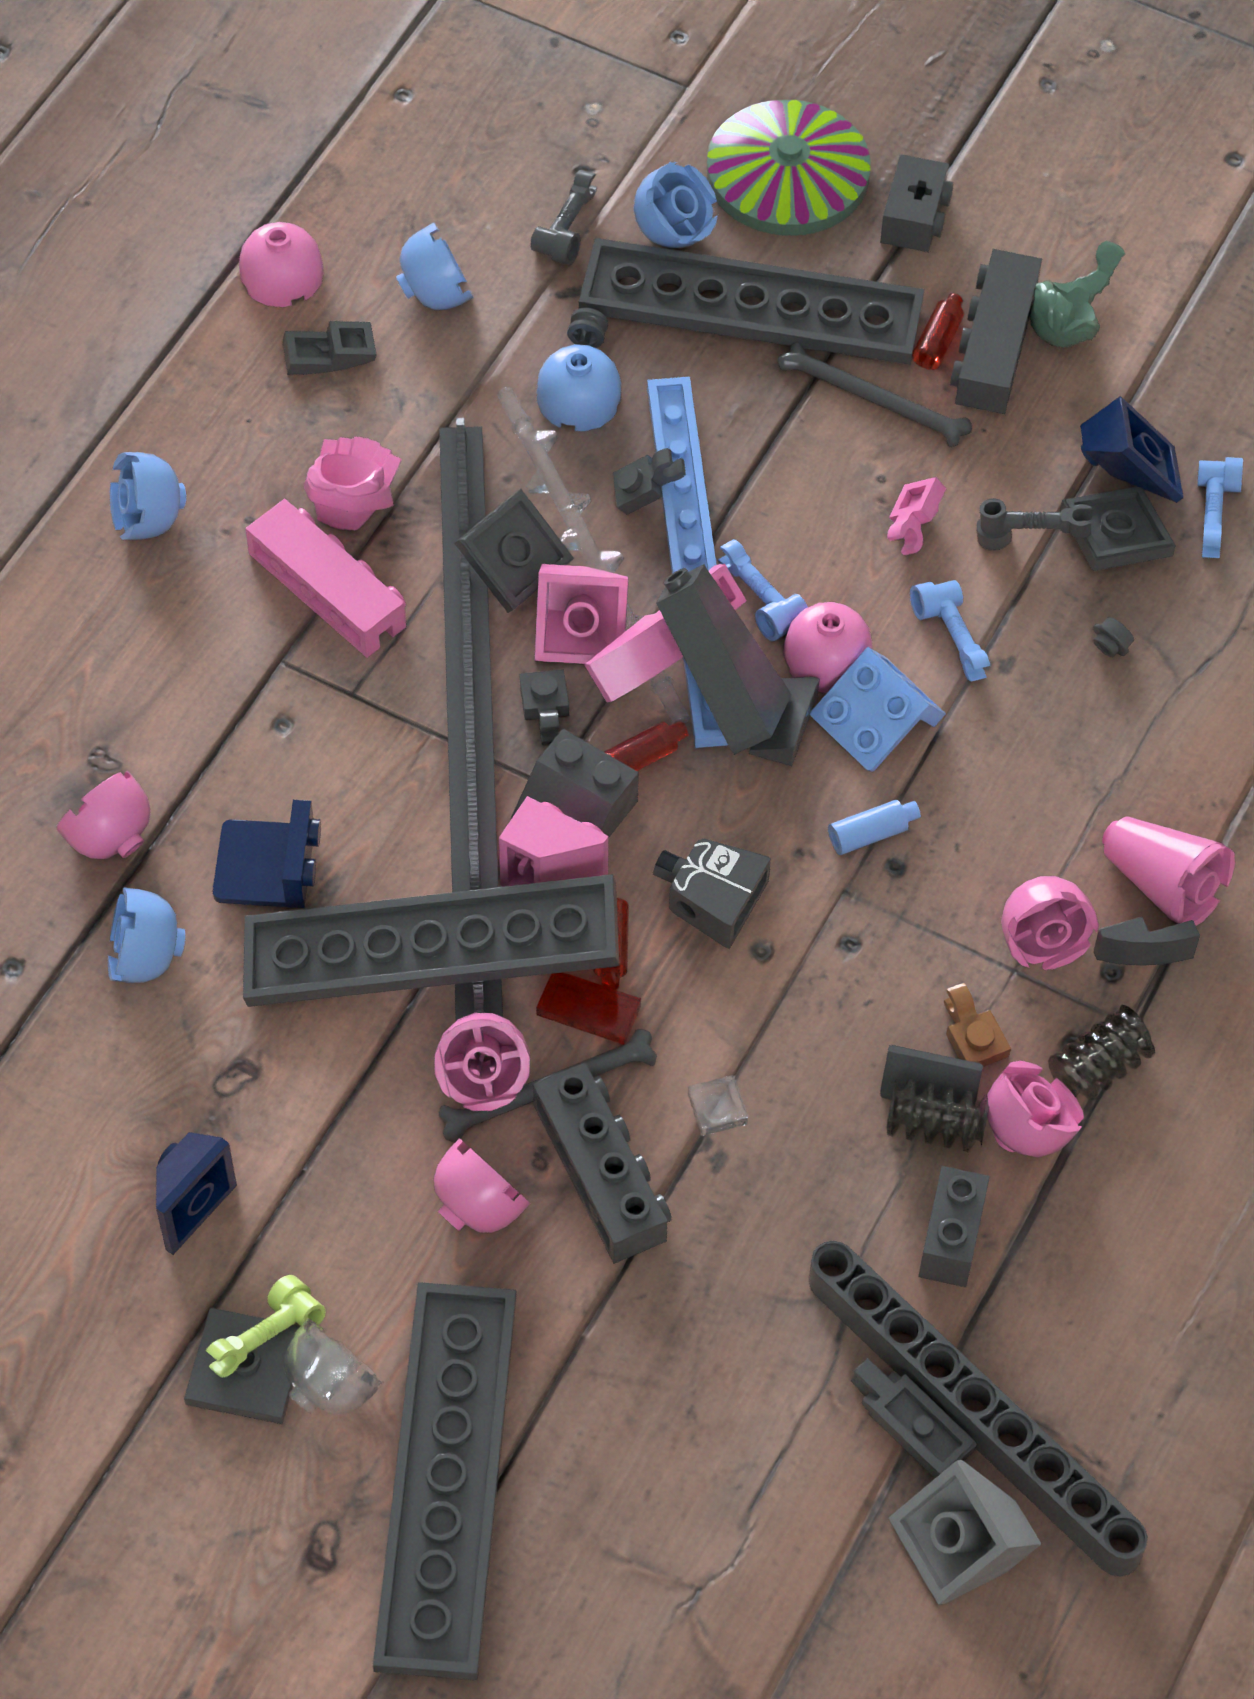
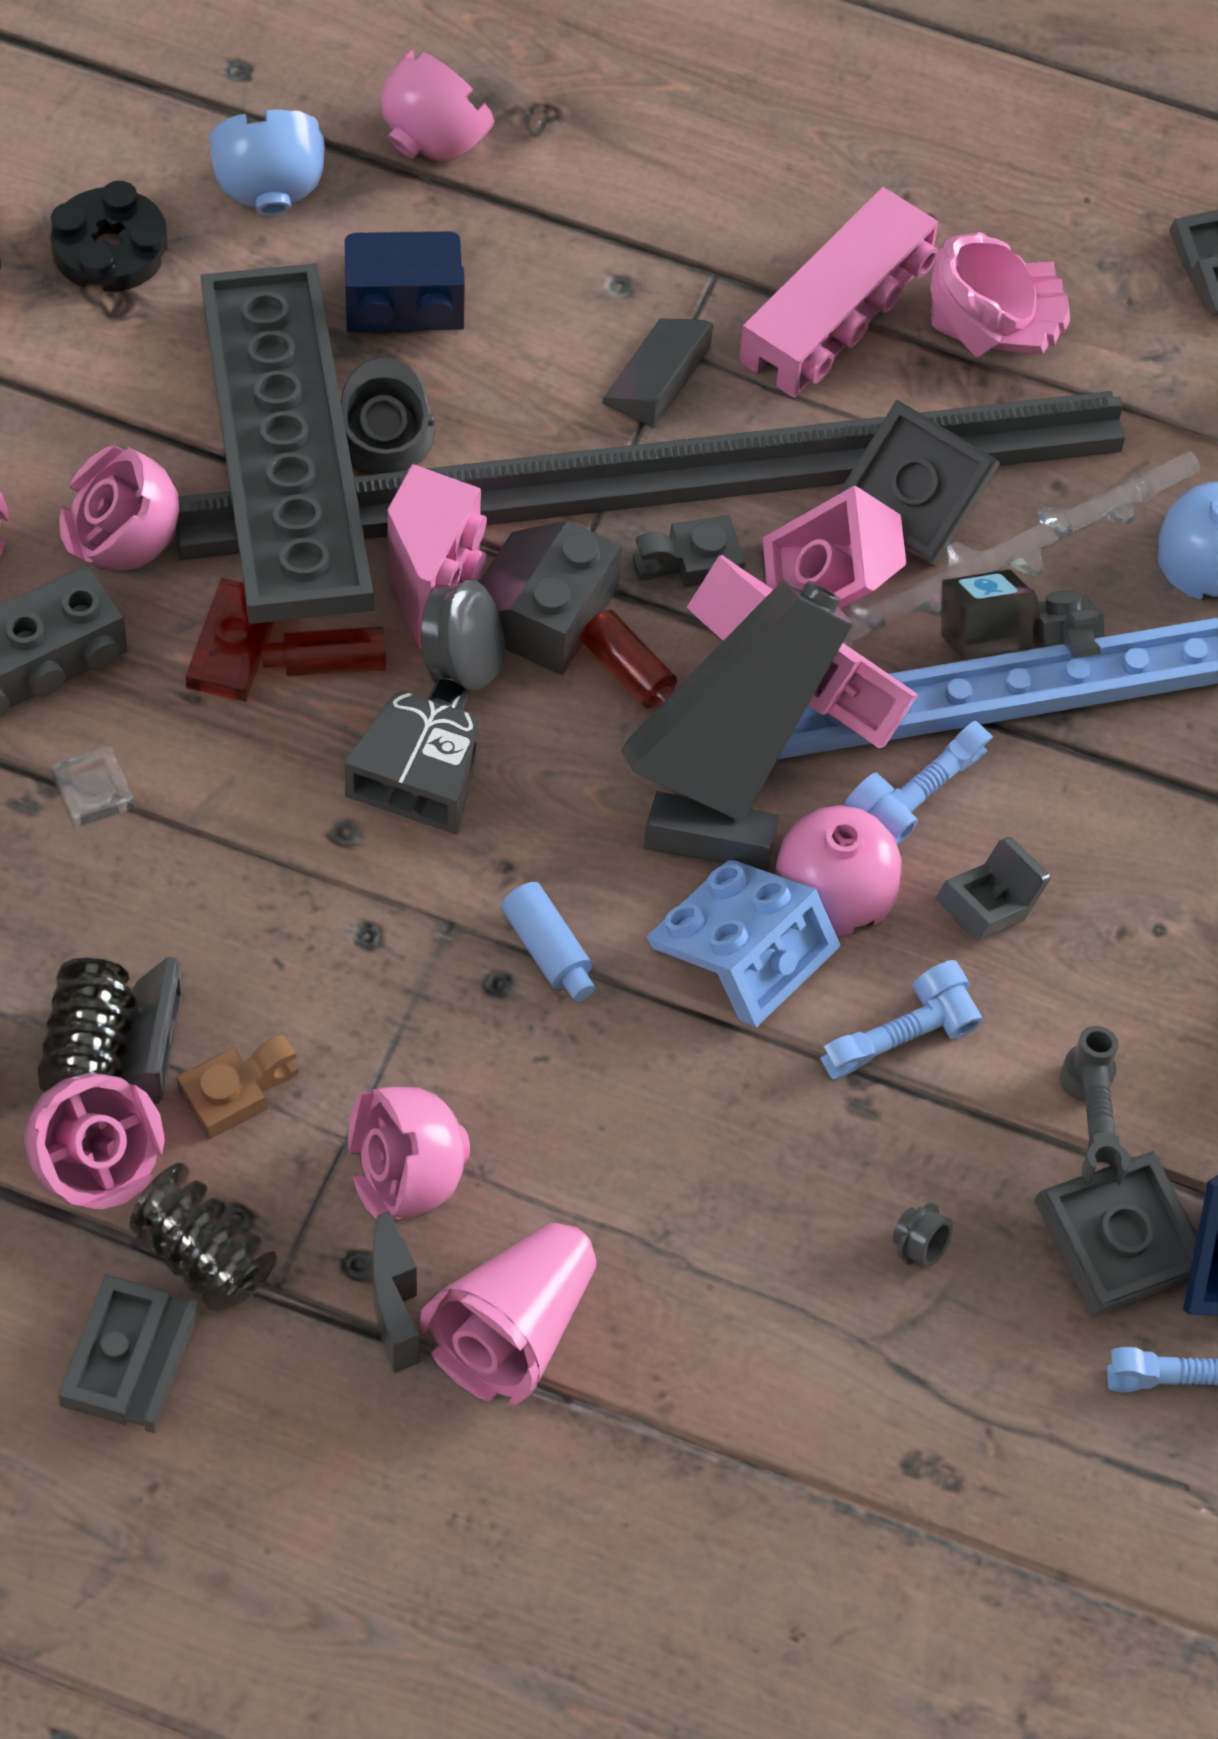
camera: 80 degrees right, 0 degrees up
(145, 496) = (919, 89): light blue cylinder -> none
(187, 1043) = (103, 211): none -> black plate
(374, 702) = (660, 369): none -> dark grey slope
(397, 875) = (386, 417): none -> dark grey piece
(634, 843) = (462, 635): none -> dark grey piece
(635, 524) = (988, 614): none -> clear smoke brick
(635, 1050) = (173, 695): dark grey piece -> none
(856, 558) = (995, 892): none -> dark grey bracket
(914, 507) = (1102, 963): bright pink plate -> none
(1184, 1108) = (129, 1353): none -> dark grey plate

